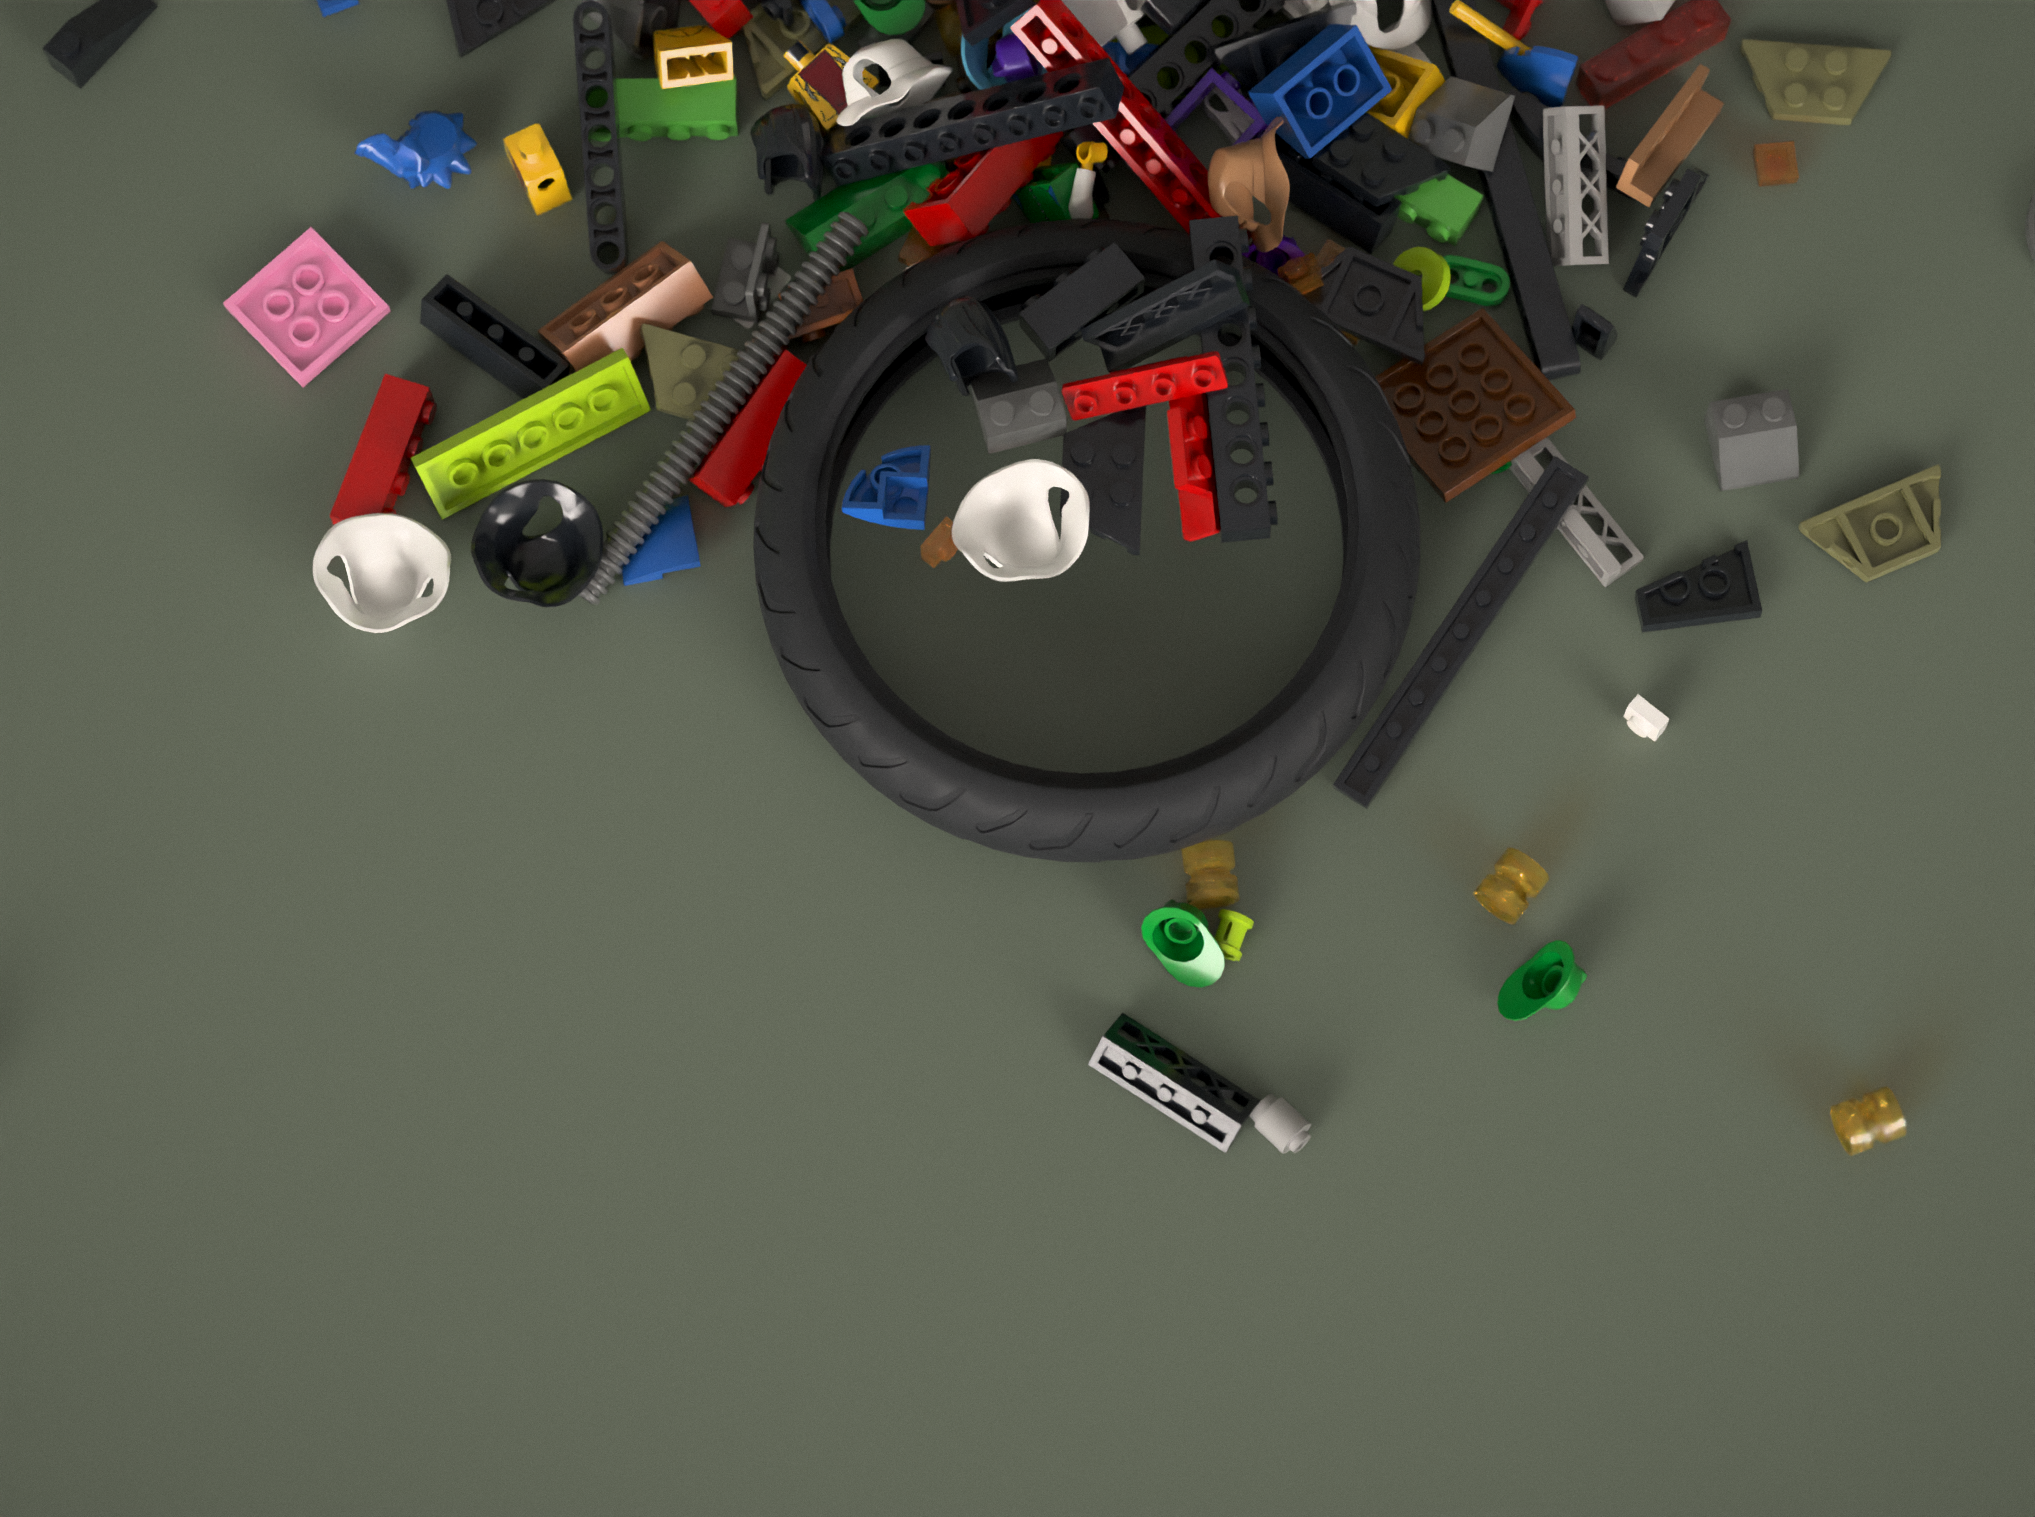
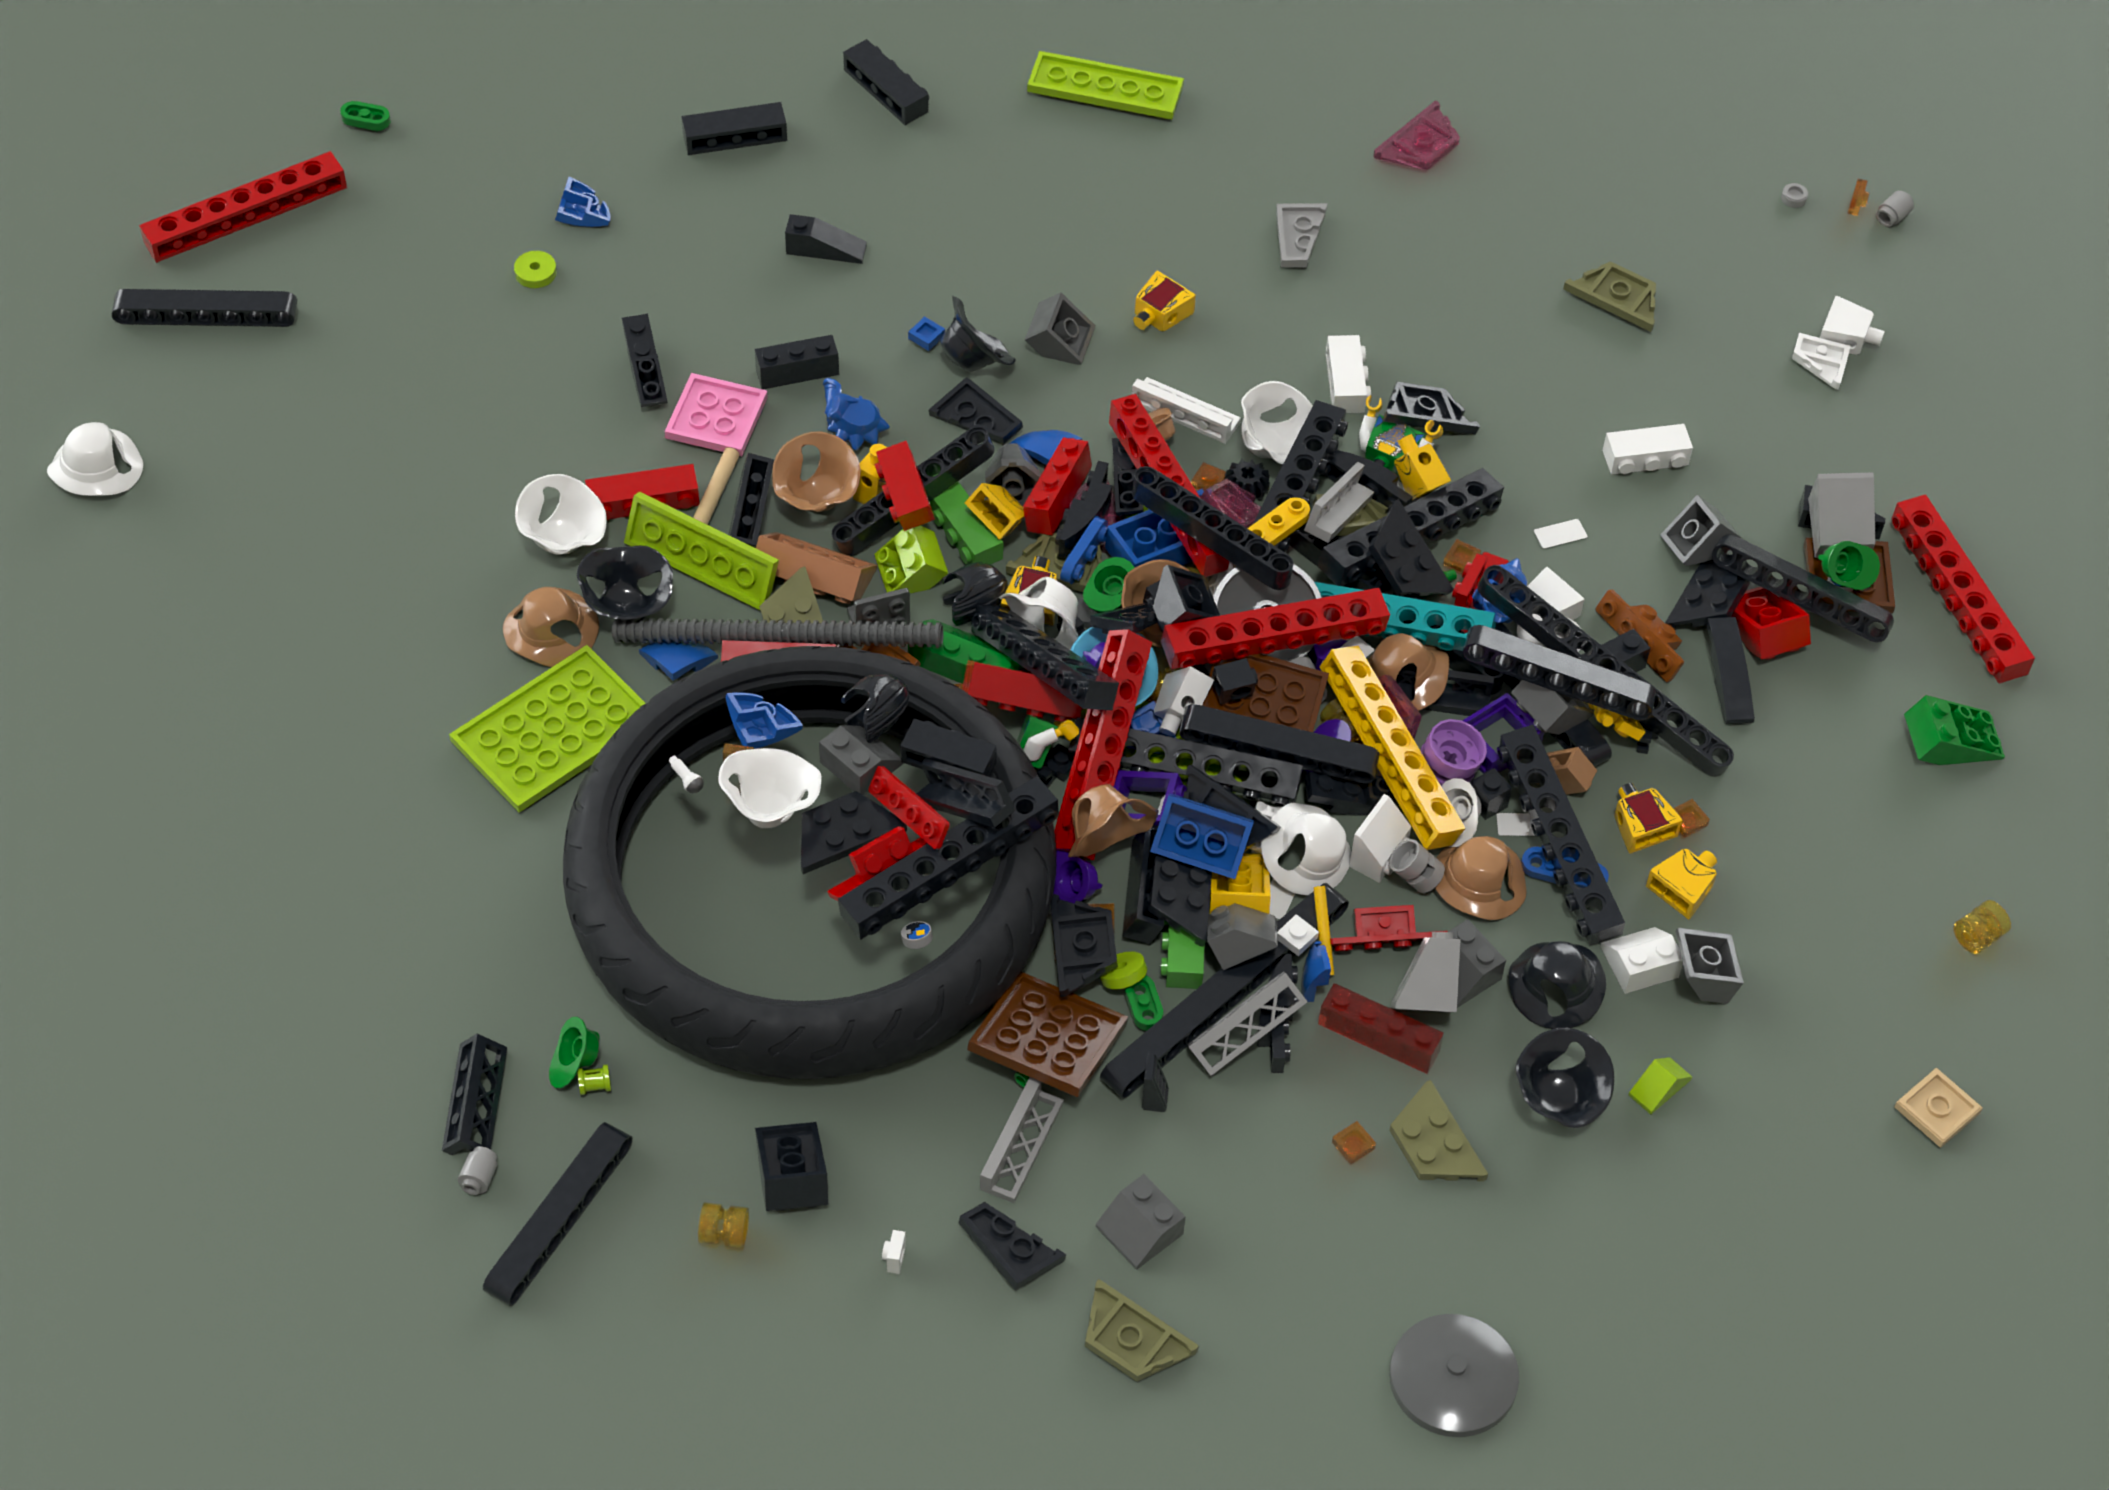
camera: 55 degrees right, 20 degrees down
(168, 352) = (644, 360): none -> black slope
(286, 167) = (797, 362): none -> black brick
(426, 368) = (717, 485): none -> tan piece
(515, 230) = (831, 483): none -> medium nougat piece
(518, 653) = (541, 609): none -> medium nougat piece
(607, 143) = (903, 486): none -> red brick
(687, 740) = (548, 728): none -> lime plate
(689, 199) = (911, 561): none -> lime slope
(937, 613) = (692, 782): none -> white piece
(1210, 874) = (631, 1044): clear yellow wheel -> none
(1302, 273) = (1072, 892): clear orange plate -> none
(1307, 472) = (916, 935): none -> tile
(1389, 1060) = (557, 1214): none -> black beam
(1460, 632) = (885, 1106): black plate -> none
(1471, 772) = (792, 1166): none -> black slope
(1493, 66) = (1297, 935): none -> white plate
(1545, 980) = (666, 1281): green piece -> none
(1663, 226) = (1262, 1091): black wing -> none
(1670, 140) = (1319, 1063): medium nougat fence -> none

